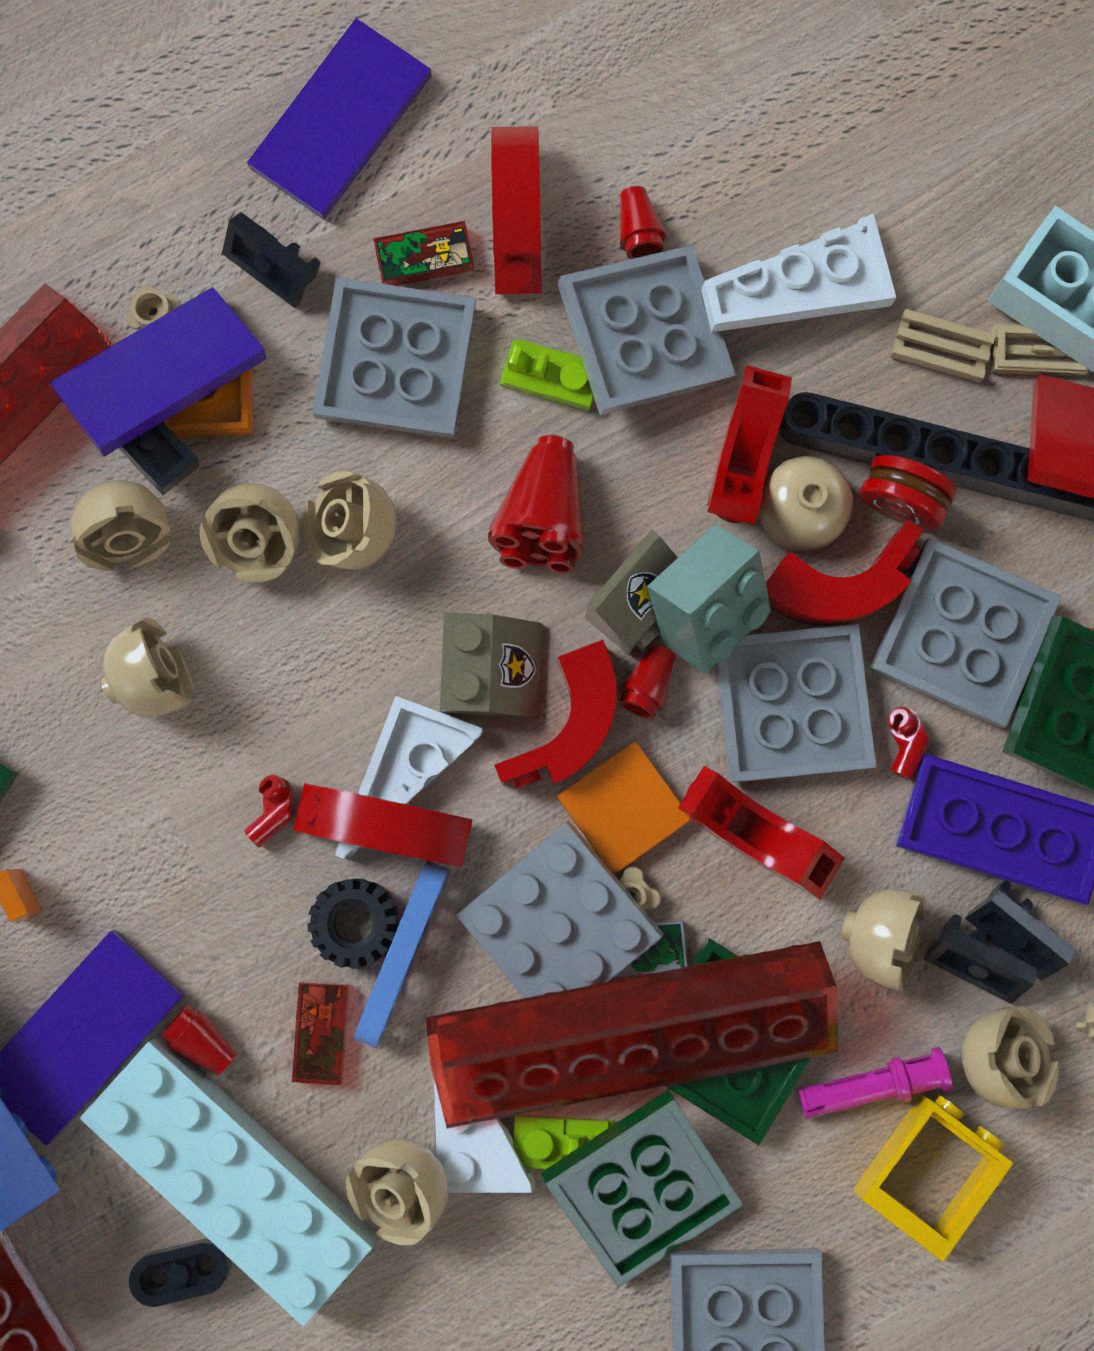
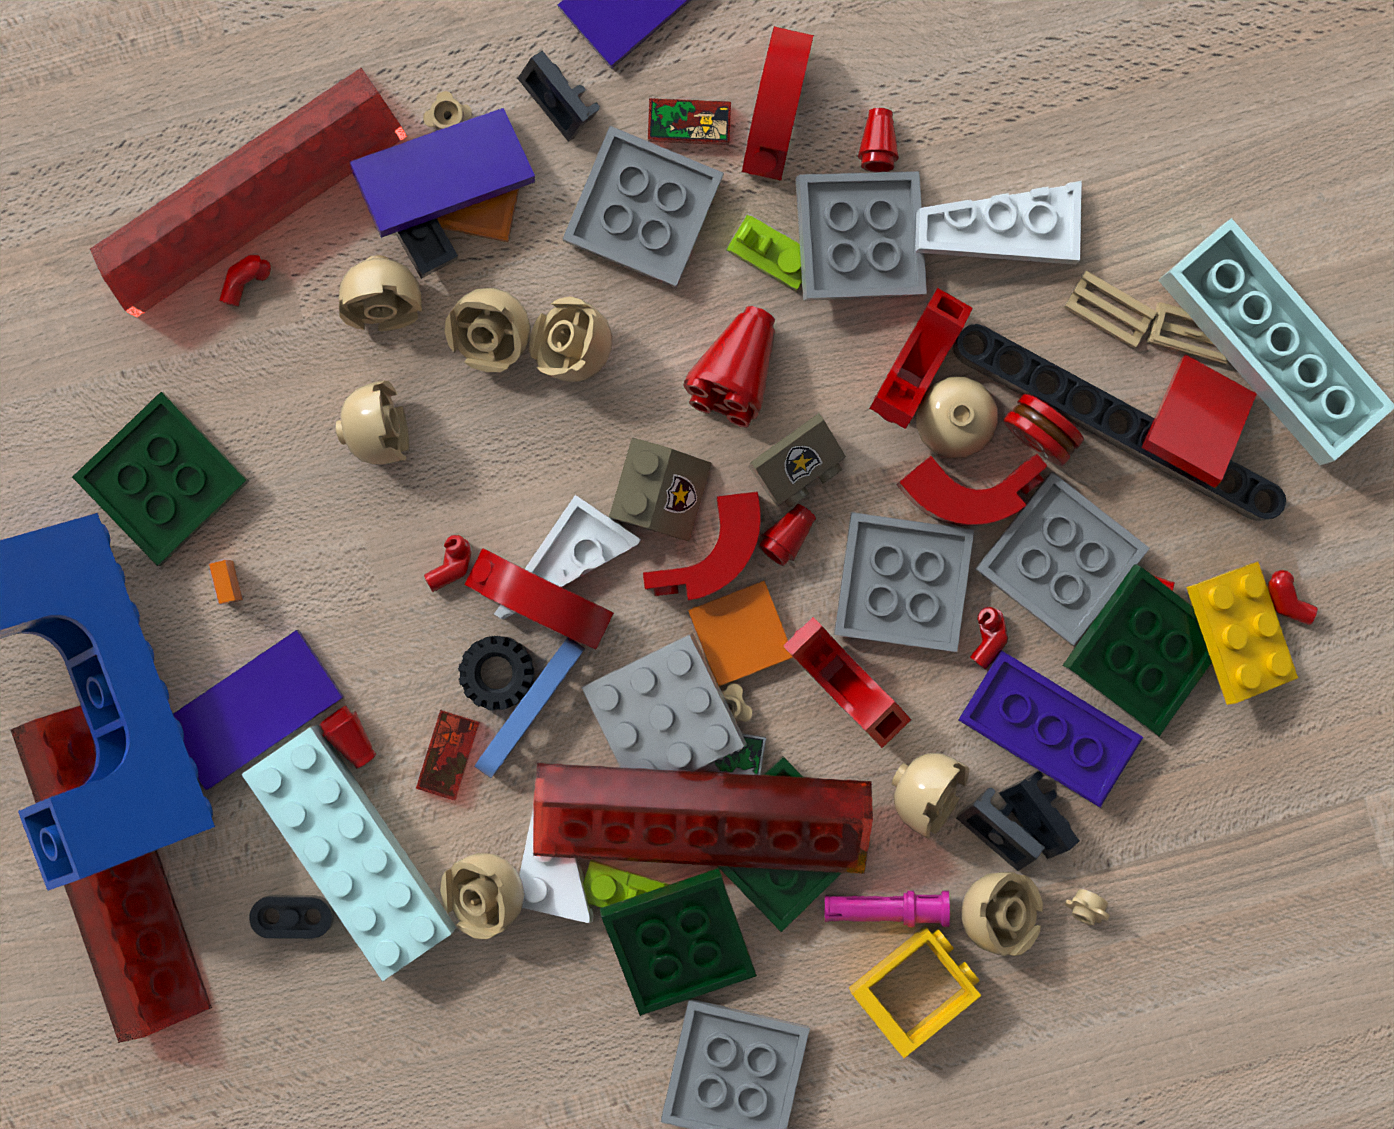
camera: 15 degrees right, 5 degrees up
(710, 598) = (854, 480): sand green brick -> none

